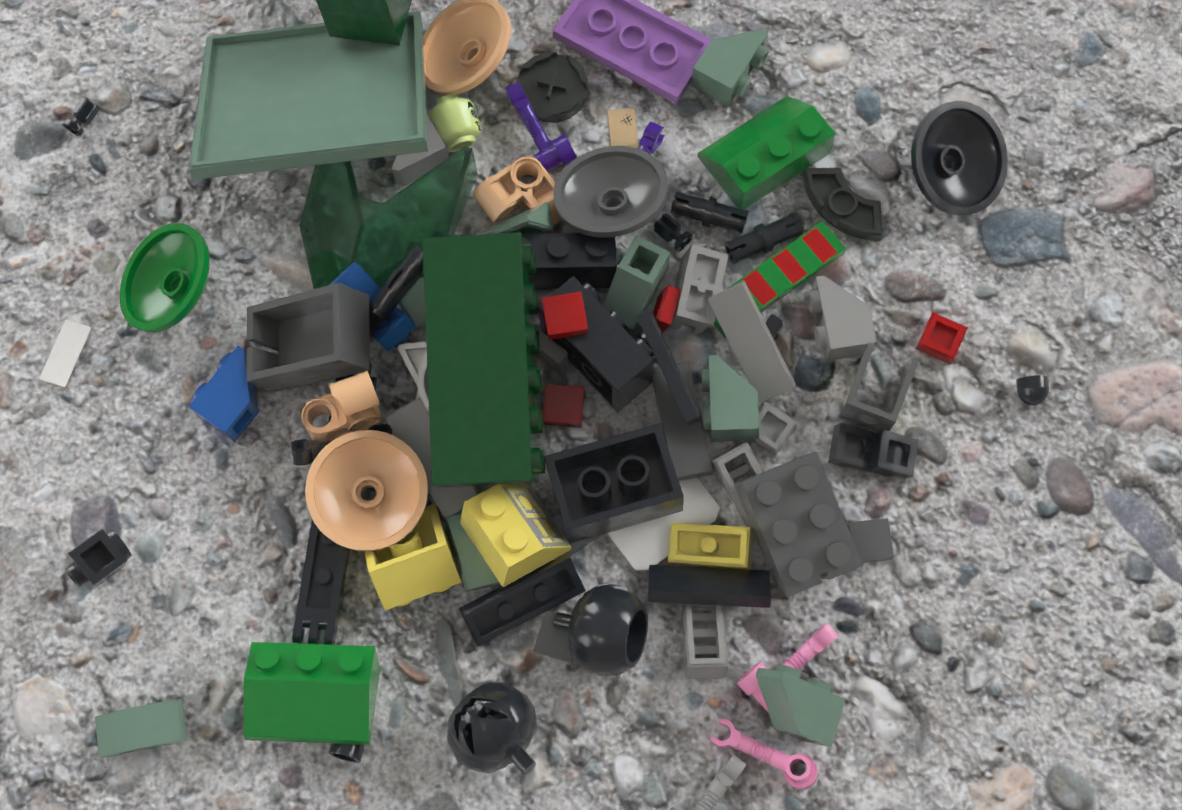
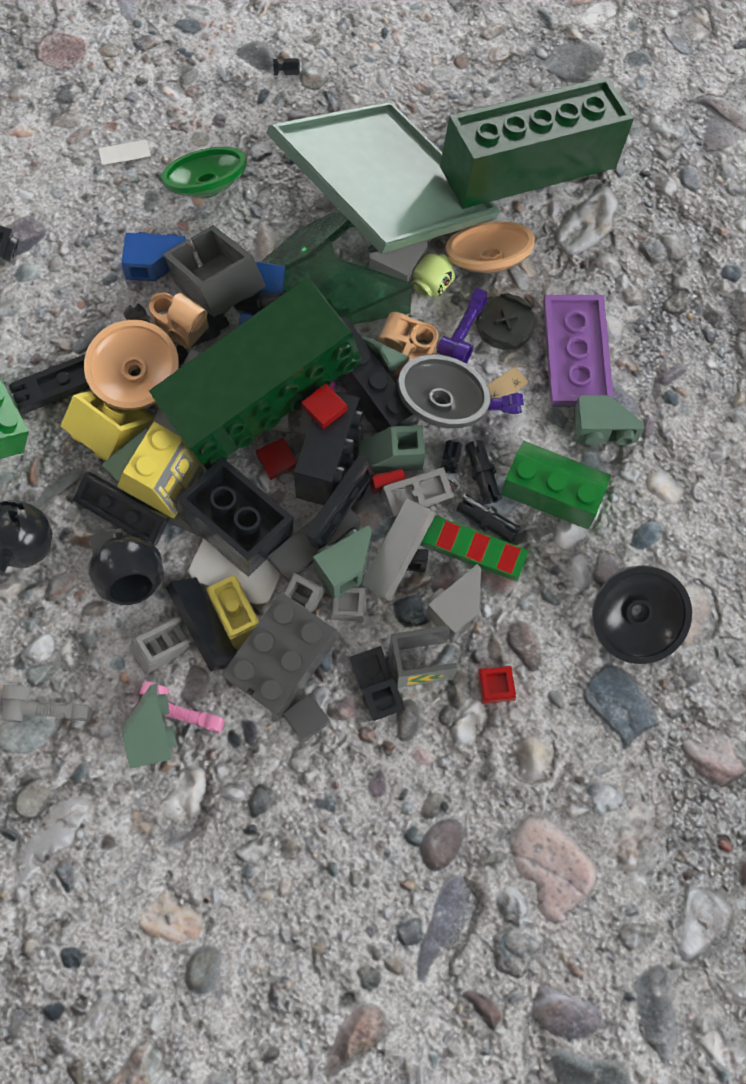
camera: 50 degrees right, 5 degrees down
(771, 756) = (103, 758): bright pink brick -> none
(841, 205) = (551, 558): pearl dark grey tile -> none
(1033, 389) = (498, 771): black hinge -> none

